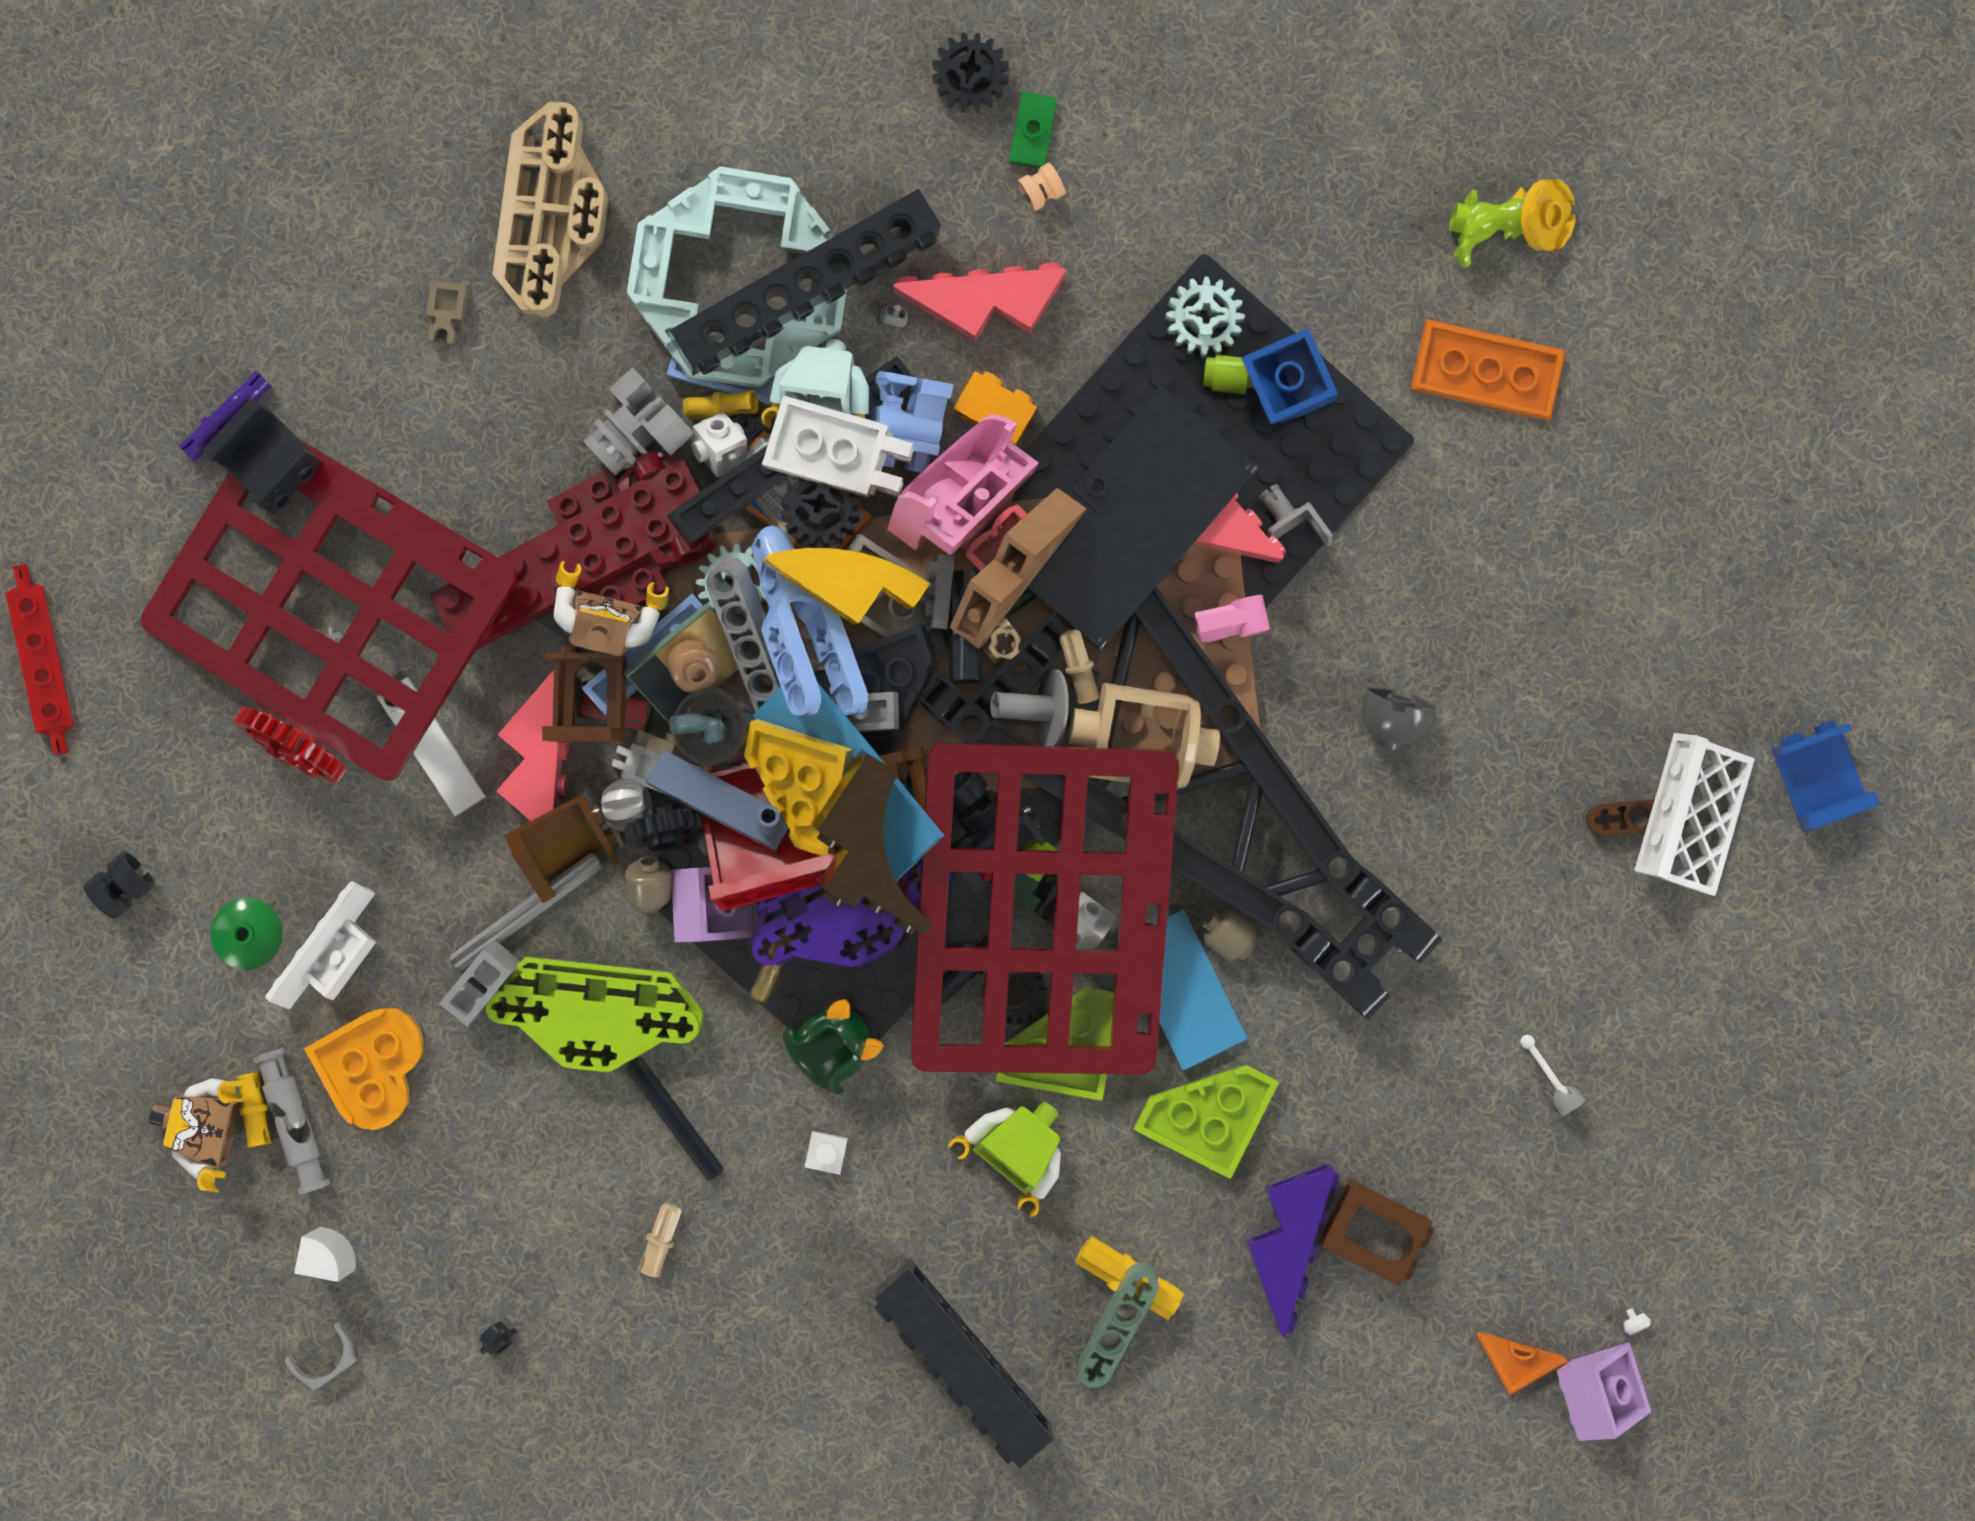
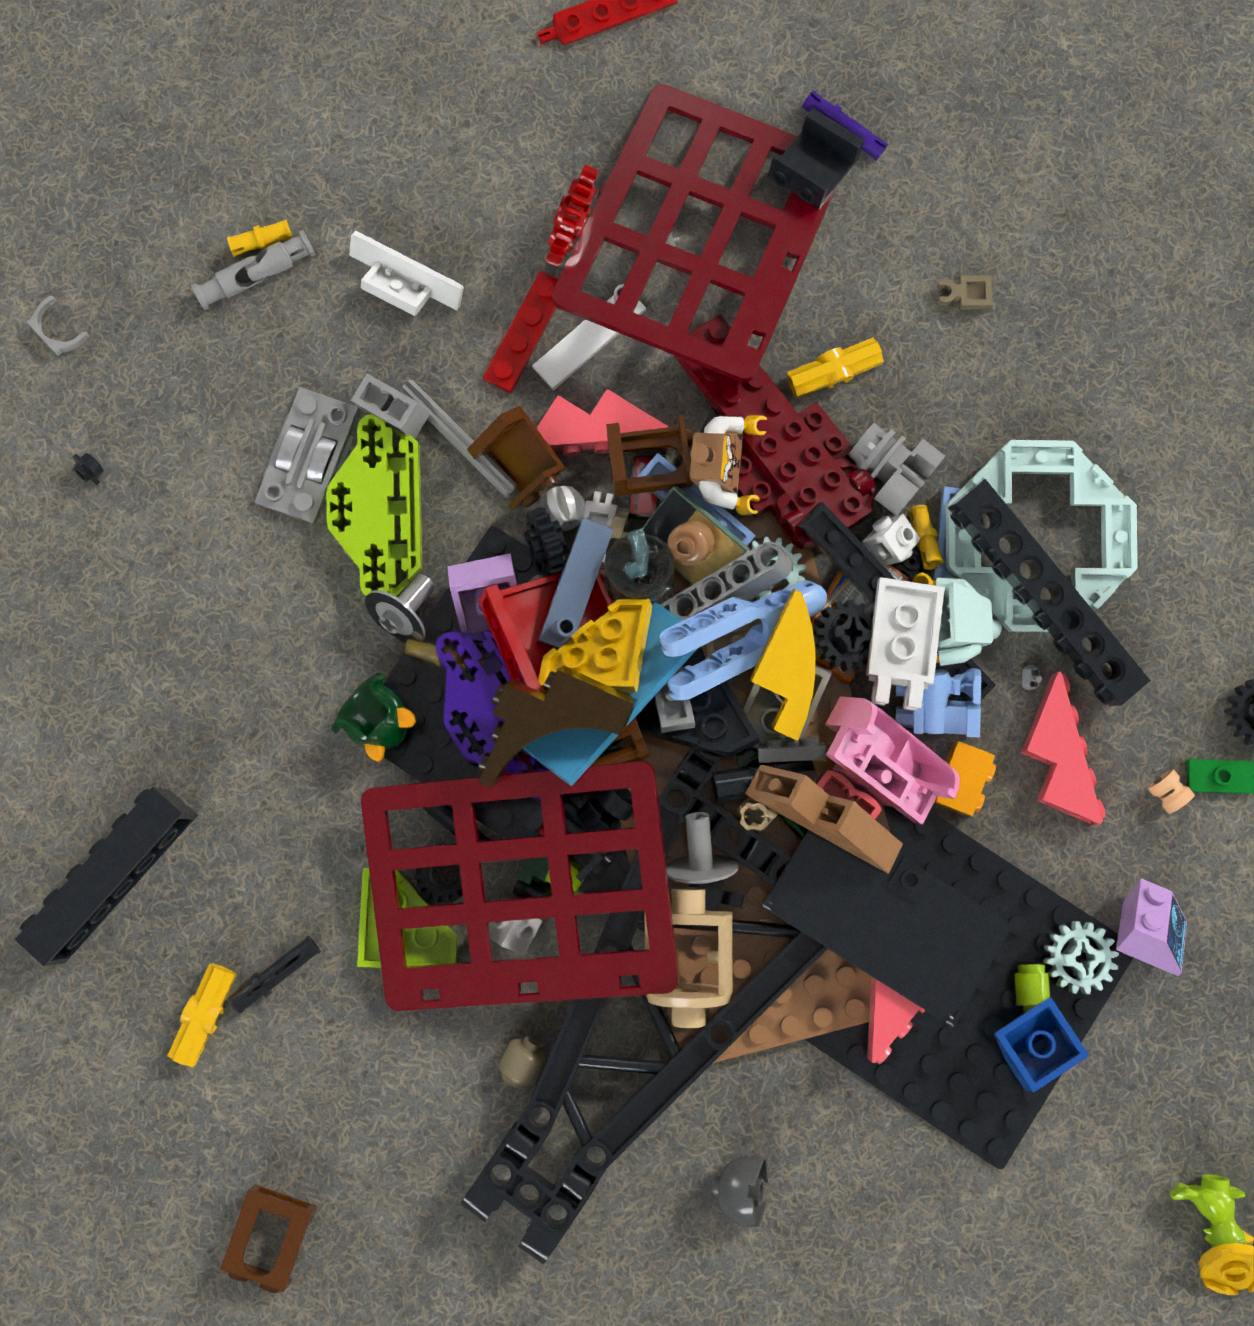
camera: 85 degrees right, 5 degrees down
(122, 873) = (430, 97): black wheel -> none
(201, 1128) = (237, 196): torso -> none
(263, 930) = (413, 222): green dish -> none
(325, 1255) = (140, 312): white brick -> none
(368, 1066) = (308, 325): light orange plate -> none
(414, 820) = (523, 334): none -> red plate
(510, 474) = (835, 367): none -> yellow piece
(547, 1101) = (296, 483): none -> light grey piece
(553, 209) = (1071, 369): tan connector -> none
(648, 884) = (495, 536): dark tan head -> none
(660, 1240) = (187, 594): tan axle -> none
(674, 1118) = (295, 591): black axle -> none
(719, 1004) = (398, 614): none -> light grey piece
(826, 1152) = (282, 727): white plate -> none
(1018, 1148) = (305, 897): lime torso -> none
(1079, 667) = (743, 888): tan axle -> none
(1119, 1230) = (243, 998): none -> black pin
(1120, 1326) = (156, 1011): sand green beam -> none
(1184, 233) = (1153, 927): none -> lavender slope
(1193, 1002) = (458, 1036): dark azure tile -> none
(1210, 1116) = (355, 1067): lime plate -> none
(1241, 618) = (810, 1030): bright pink piece -> none
(1284, 1252) = (241, 1156): dark purple slope -> none
(1288, 517) = (910, 1062): light grey bracket -> none
(1487, 370) = (1078, 1231): orange tile -> none

